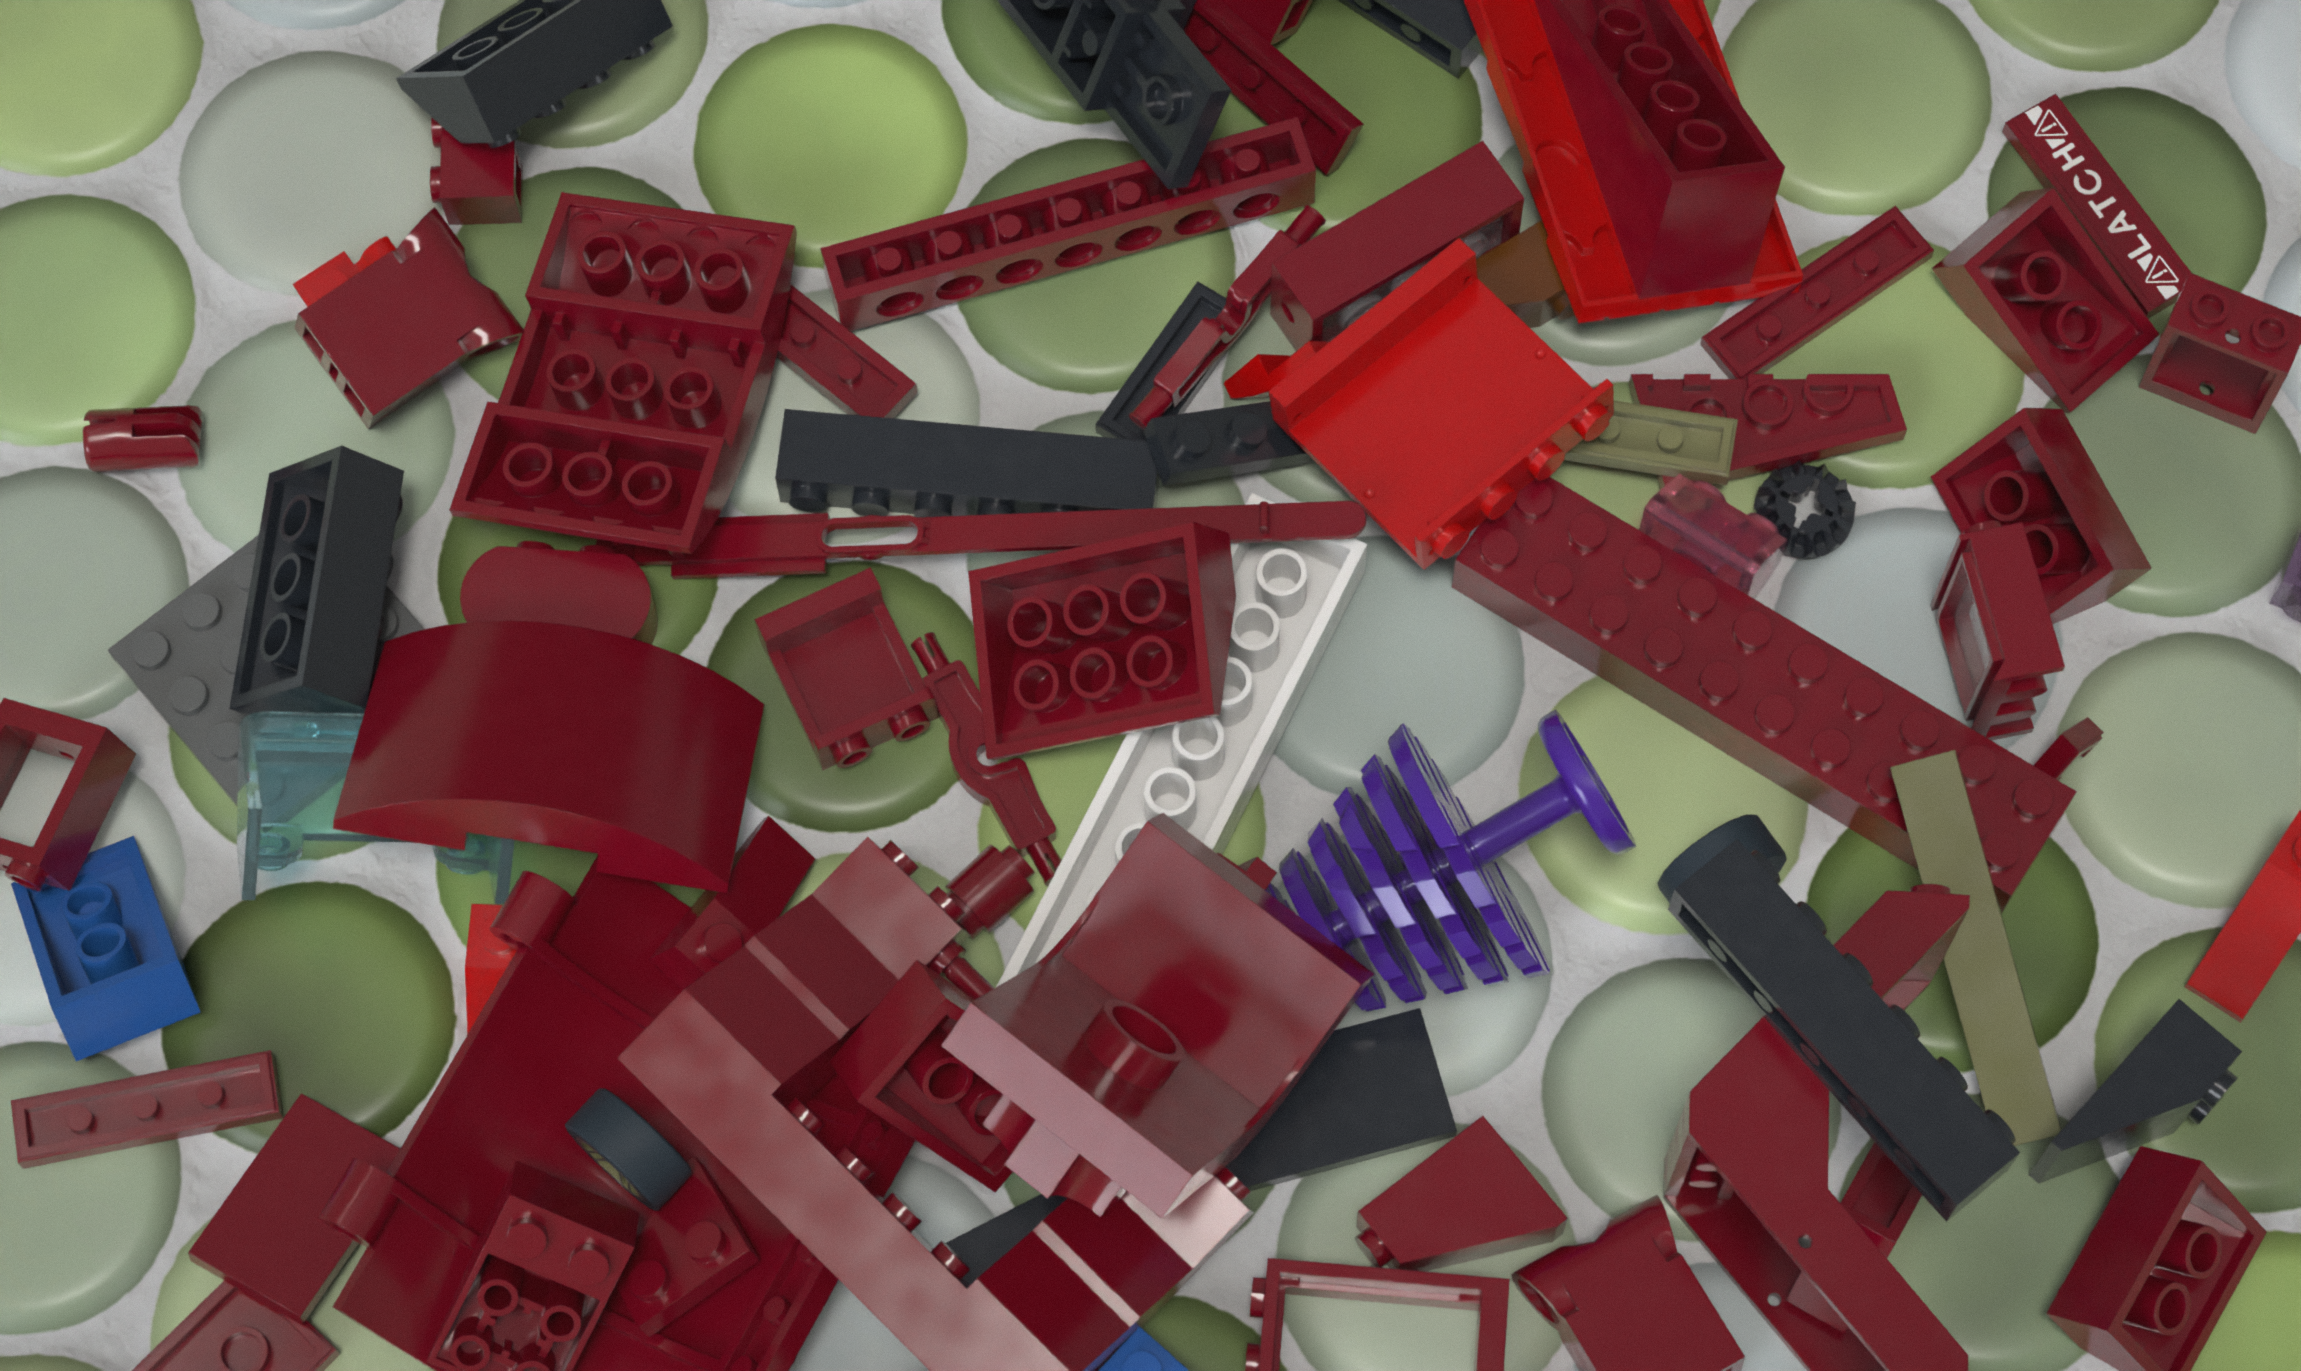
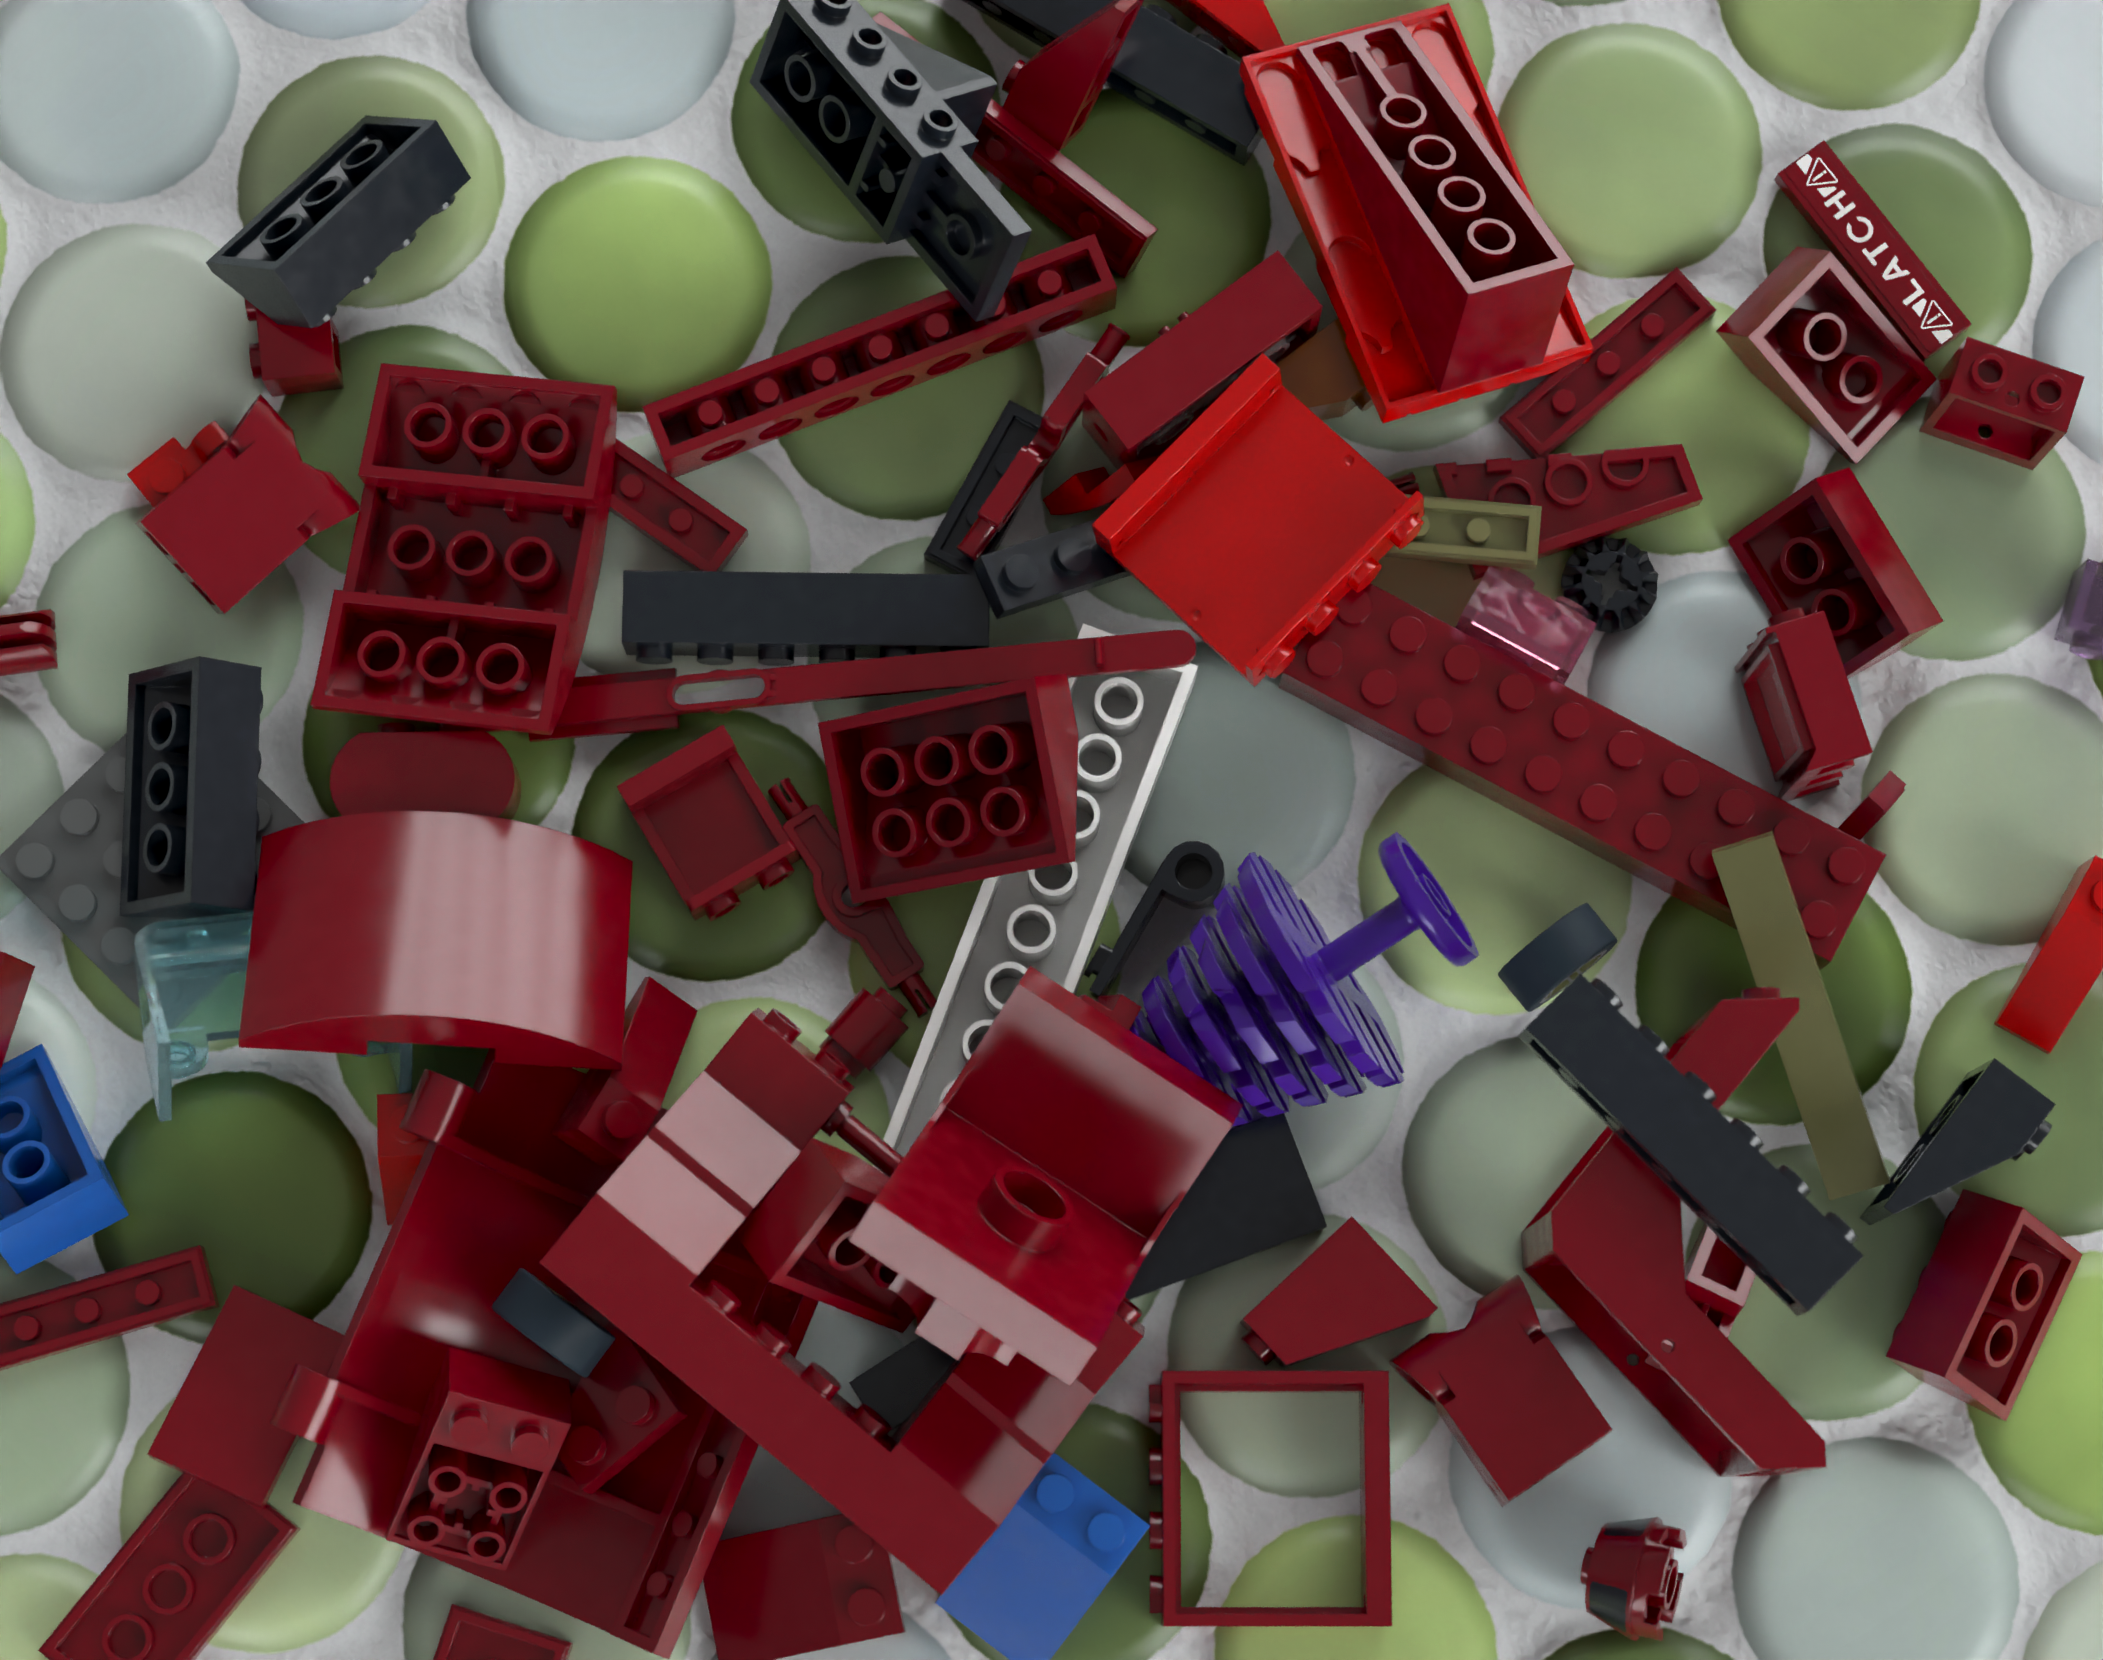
camera: 10 degrees left, 10 degrees up
(1329, 762) = (1189, 877): none -> black door

